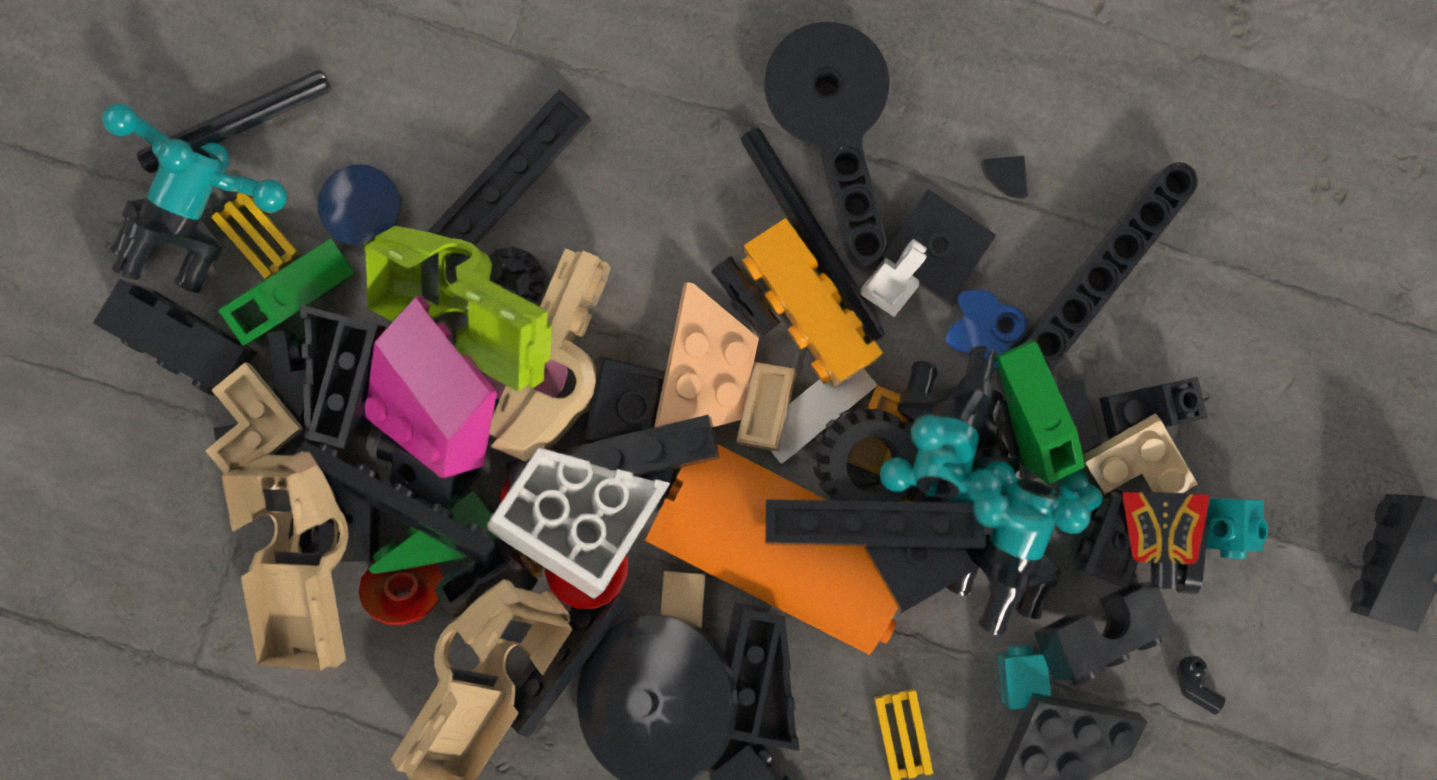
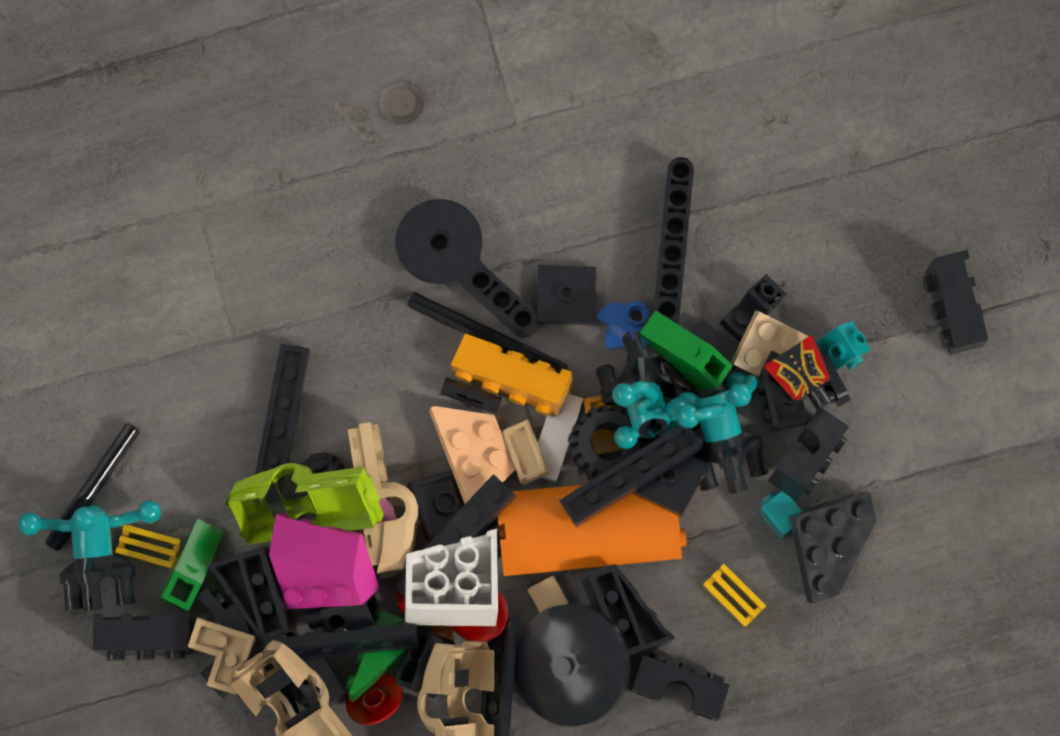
camera: 30 degrees left, 10 degrees down
(358, 204) = (200, 489): dark blue dish -> none
(894, 283) = (553, 332): white plate -> none
(1007, 175) = (580, 228): black tile -> none
(1193, 687) = (885, 455): black arm -> none

